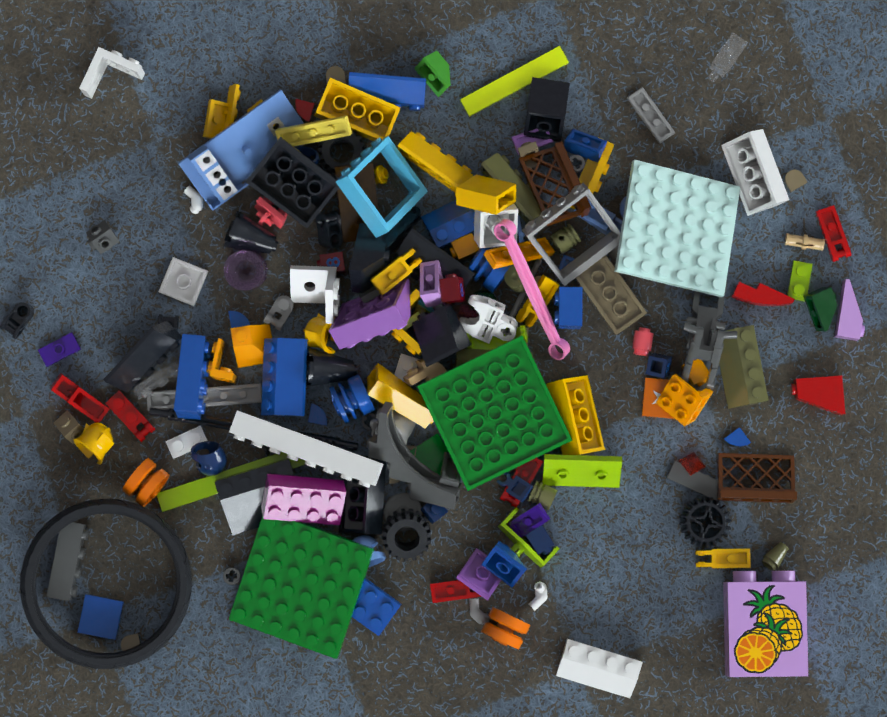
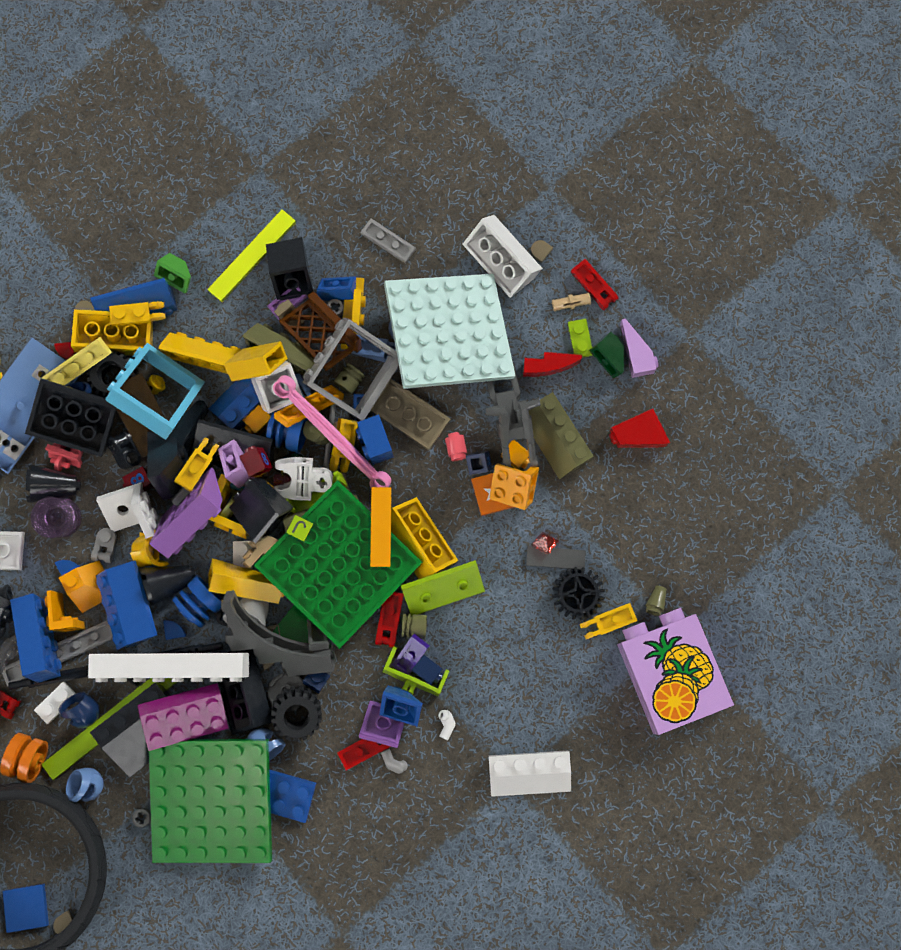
camera: 15 degrees left, 5 degrees down
(191, 526) = (84, 784): none -> medium blue helmet
(386, 102) = (135, 313): none -> yellow hinge
(472, 367) = (299, 528): none -> lime tile
(505, 628) = (424, 769): orange wheel -> none
(517, 488) = (386, 627): dark blue plate -> none
(546, 394) = (380, 527): none -> light orange tile
(727, 57) = (437, 164): clear hinge -> none
(737, 438) = (578, 503): blue tile -> none
(756, 494) = (616, 549): reddish brown fence -> none

